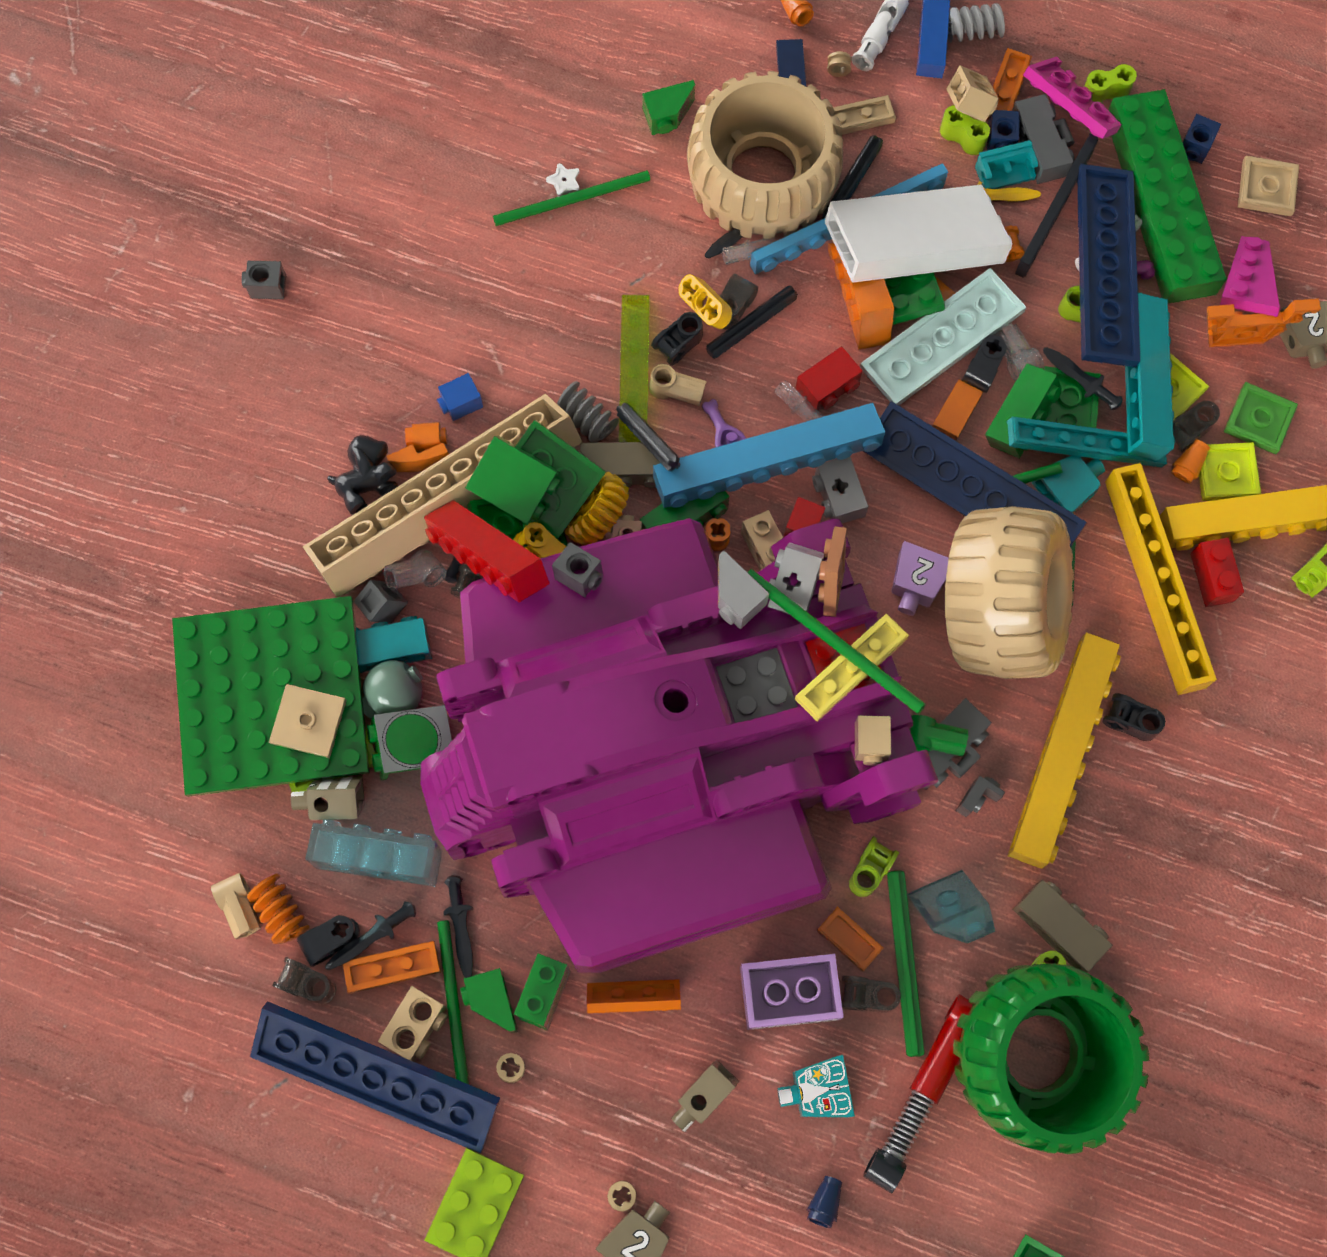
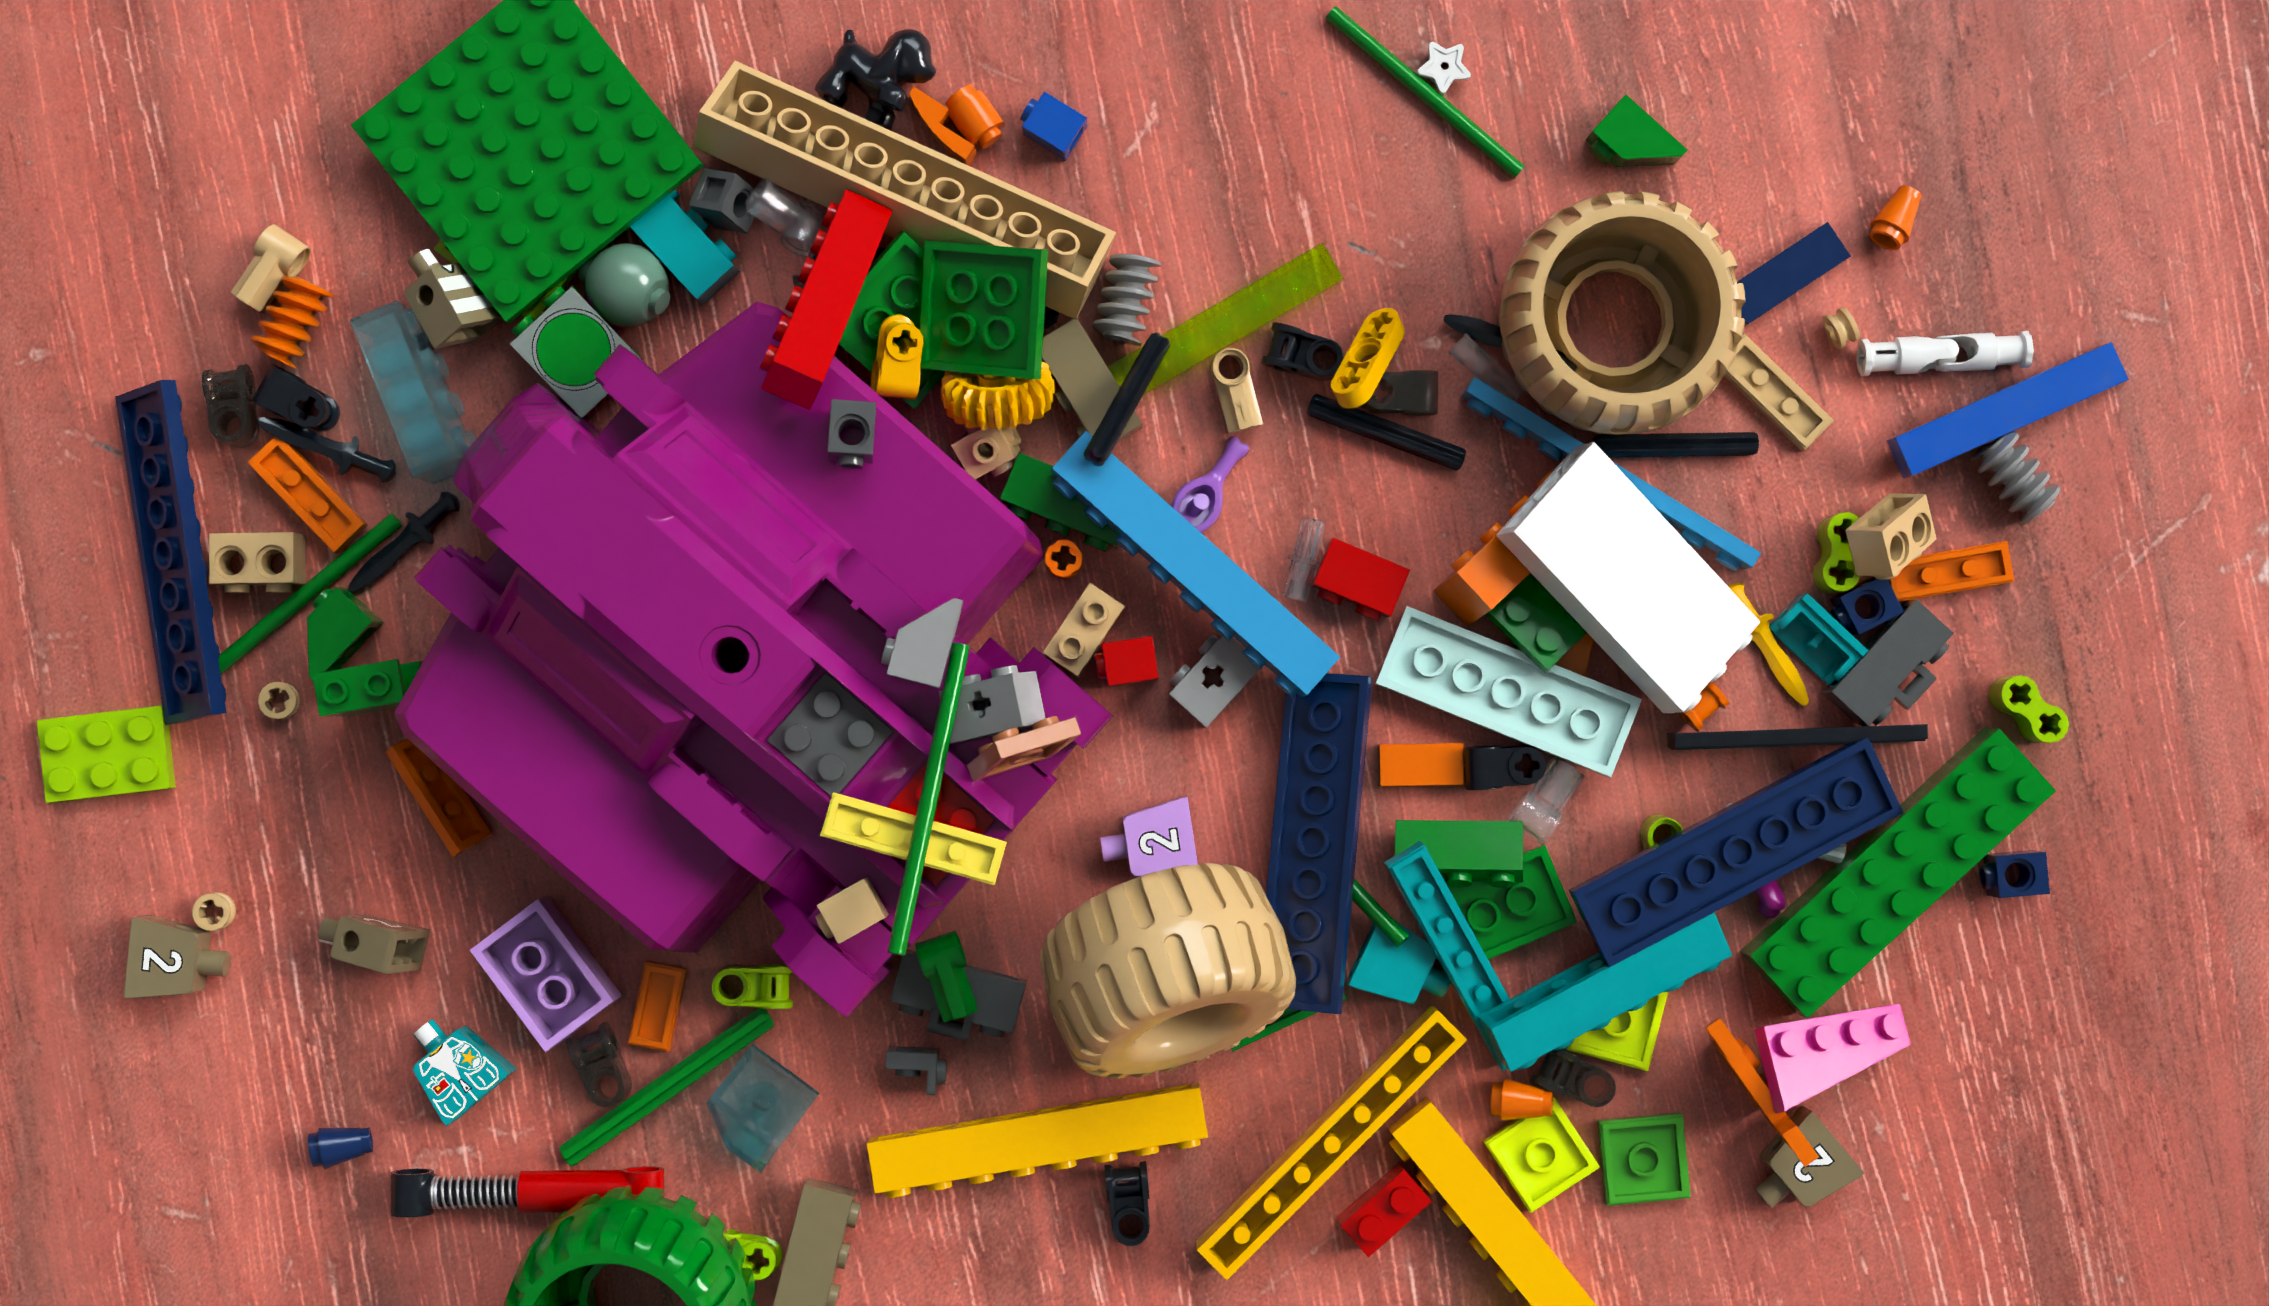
camera: 60 degrees right, 15 degrees up
(307, 721) = (515, 213): tan plate -> none
(513, 480) = (951, 272): green brick -> none
(1075, 99) = (1977, 652): dark pink wing -> none
(1090, 384) = (1551, 917): black sword -> none
(1268, 186) = (2000, 1002): tan plate -> none

